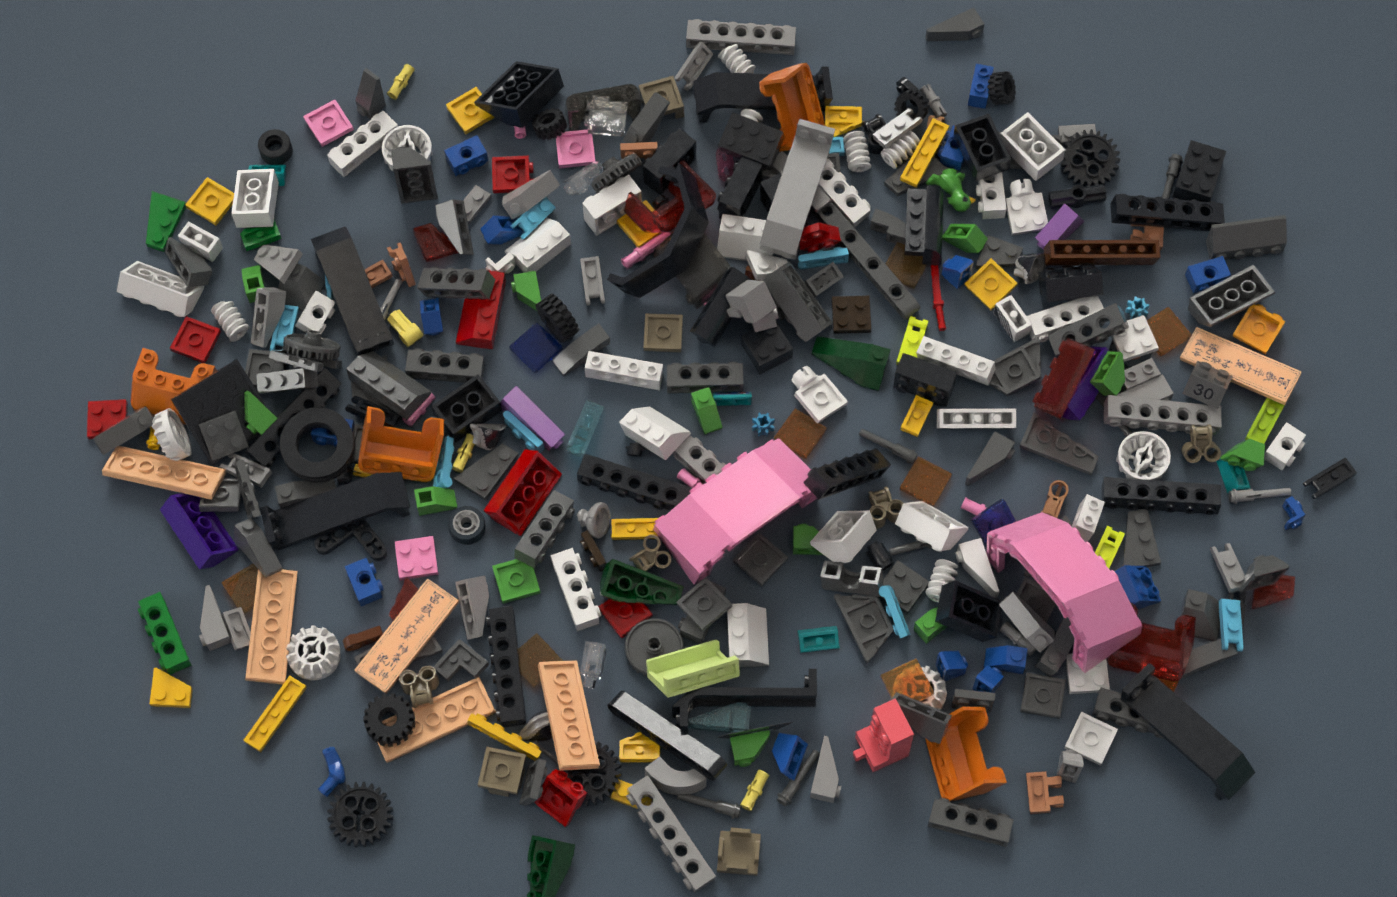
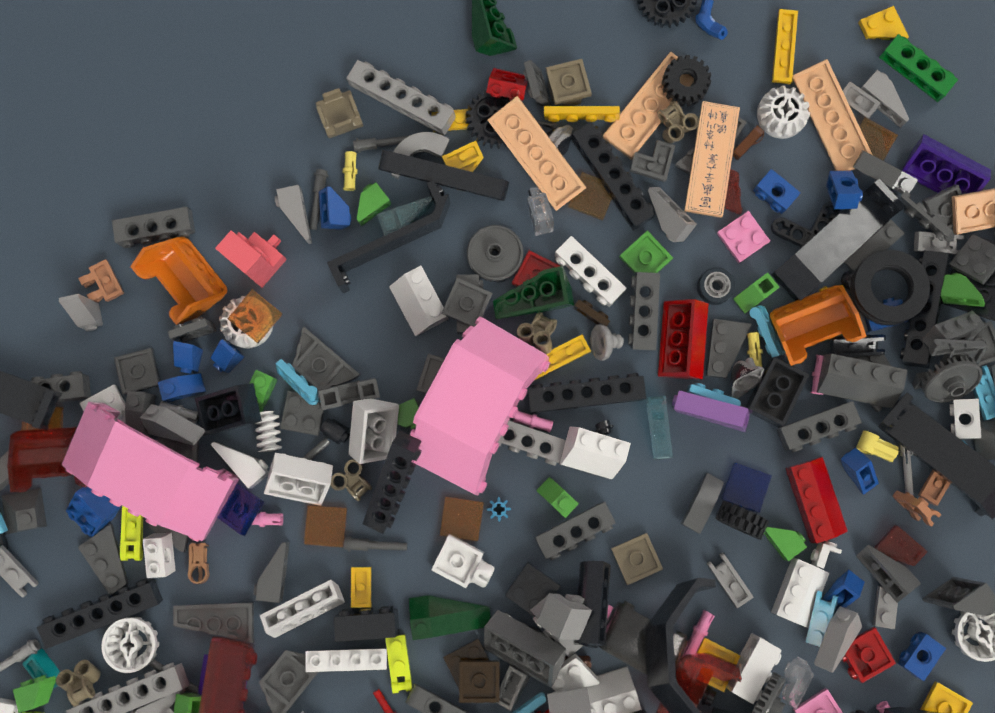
camera: 155 degrees right, 15 degrees up
(311, 543) = (844, 190): none -> blue brick
(456, 283) = (855, 509): dark grey brick -> none
(624, 370) = (653, 501): white brick -> none
(691, 668) = (448, 238): yellowish green panel -> none
(732, 398) = (541, 524): teal slope -> none
(774, 727) = (384, 201): black piece -> none
(818, 639) = (356, 331): teal slope -> none
(848, 294) = (479, 681): none -> dark brown plate
(923, 718) = (227, 287): dark grey slope -> none
(1091, 738) = (79, 350): white plate -> none

